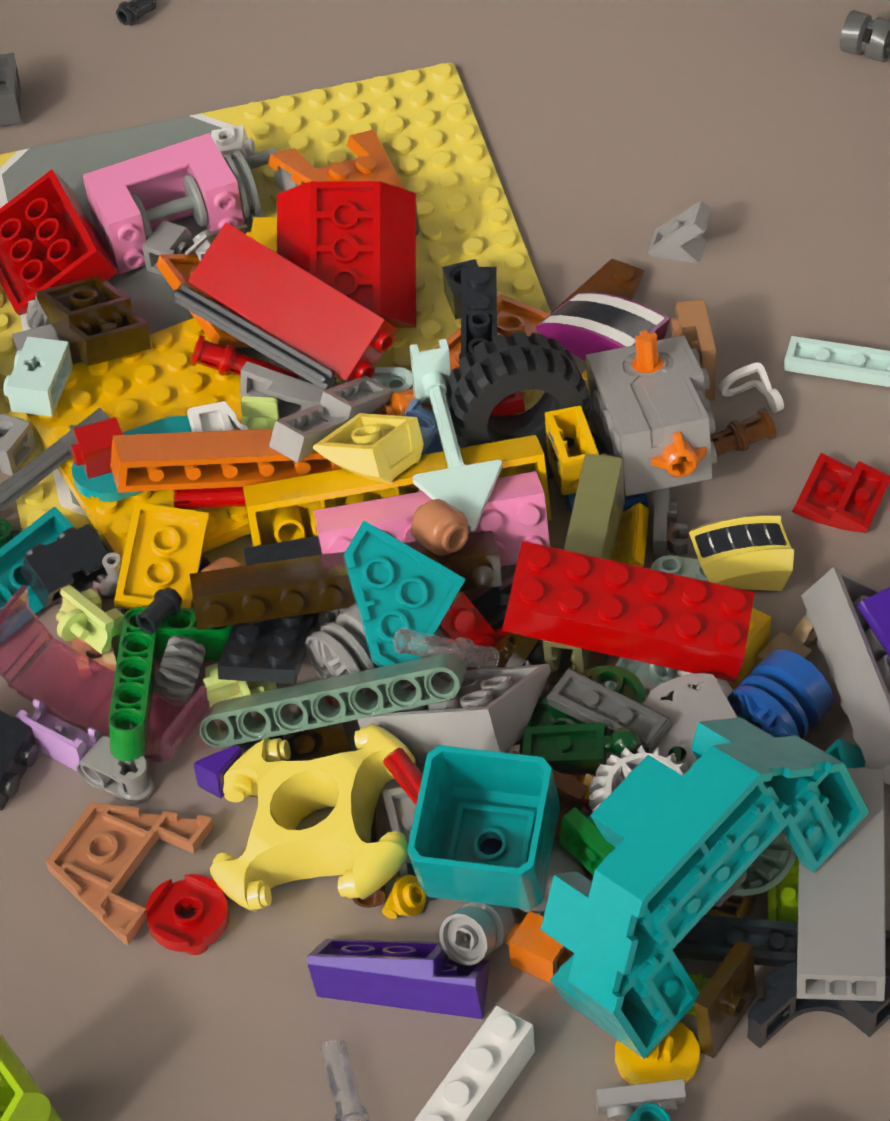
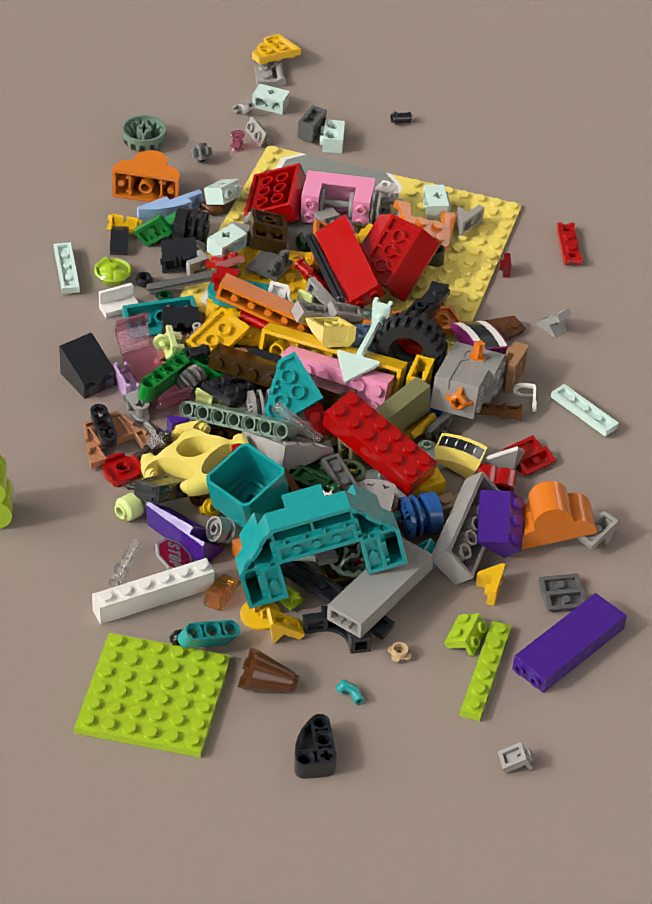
camera: 25 degrees right, 5 degrees down
(51, 95) = (332, 136): none -> light aqua brick
(69, 413) = (218, 260): none -> red plate
(100, 862) = (103, 431): none -> black beam
(144, 378) = (270, 264): none -> dark grey hinge
(161, 308) = (301, 242): none -> dark green arm
(219, 824) = (157, 442): none -> clear smoke piece
(266, 982) = (129, 507): none -> yellowish green head
(296, 918) = (157, 488): none -> black piece
(322, 125) = (435, 201): none -> light aqua brick
(398, 131) = (468, 220): none -> light grey slope
(423, 1033) = (172, 553): none -> piece
(440, 527) = (331, 373): nougat head -> none
(522, 178) = (505, 265): none -> dark red plate
(562, 1076) = (219, 593): none -> clear orange slope
(584, 92) = (568, 244): none -> red plate
(623, 1100) = (246, 625): light grey plate -> none
(725, 998) = (300, 600): dark brown plate -> none
(725, 1055) = (284, 624): none -> yellow slope
(822, 524) = (505, 459): none -> light grey slope
(843, 552) = (502, 478): none -> red brick

